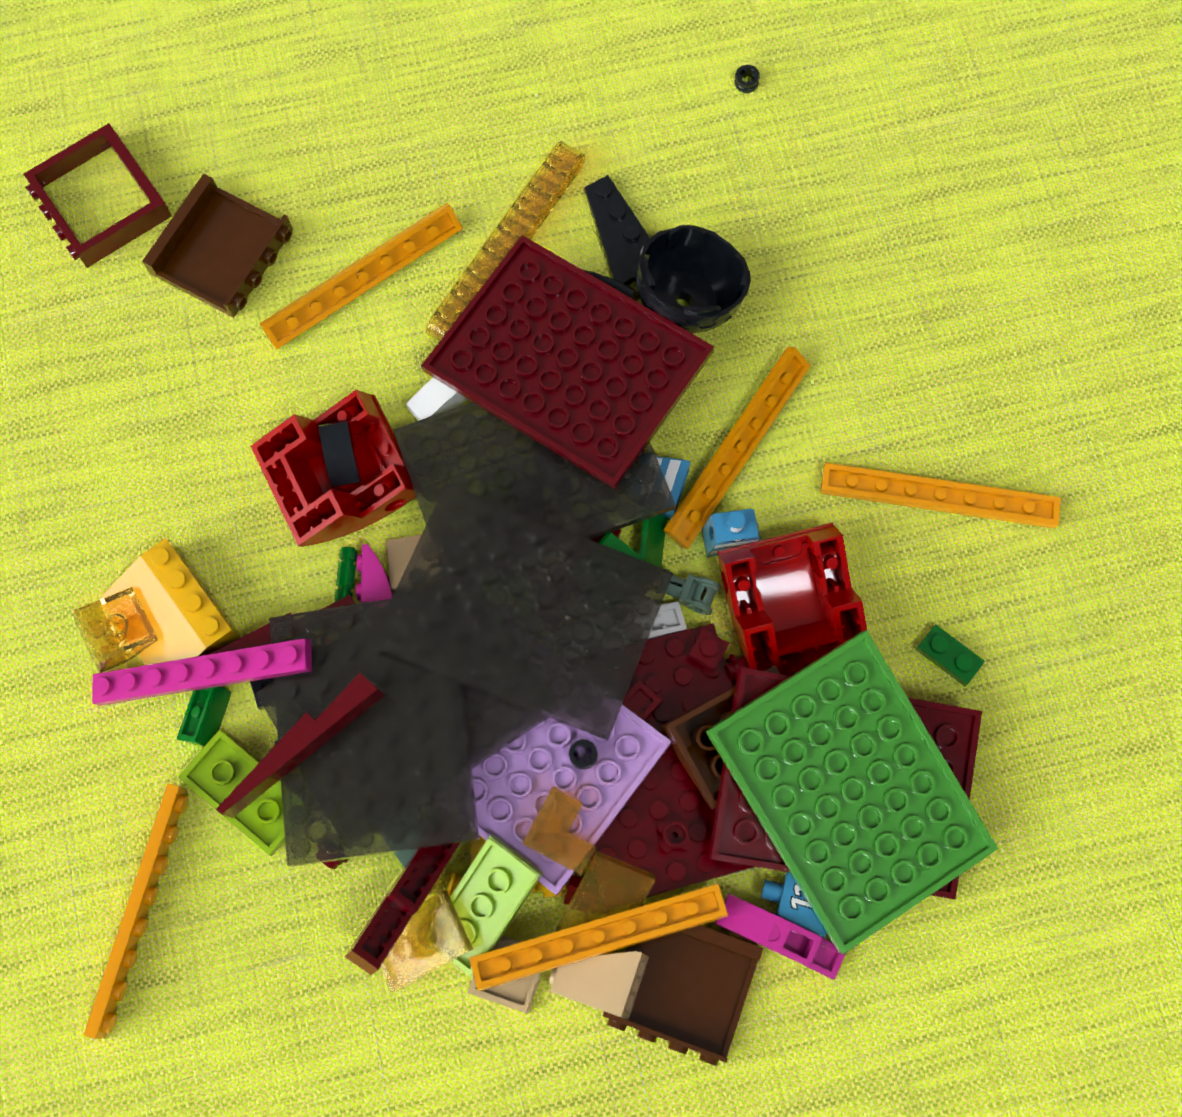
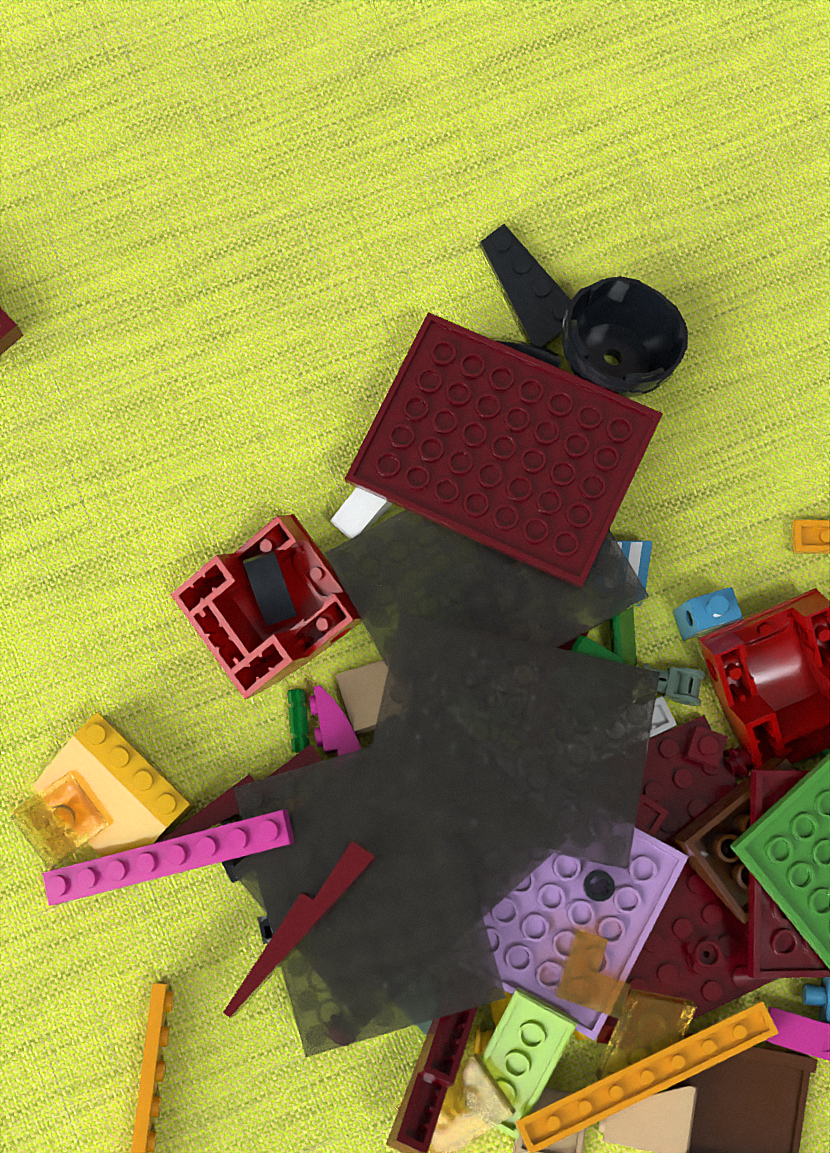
camera: 15 degrees left, 5 degrees up
(204, 715) = (173, 902): green slope -> none
(217, 247) = (85, 366): reddish brown panel -> none
(218, 772) = (214, 967): lime plate -> none
(361, 276) = (252, 378): light orange plate -> none
(521, 219) = (406, 316): clear yellow beam -> none
(737, 448) = (698, 516): light orange plate -> none
(750, 86) = (640, 81): black bush -> none

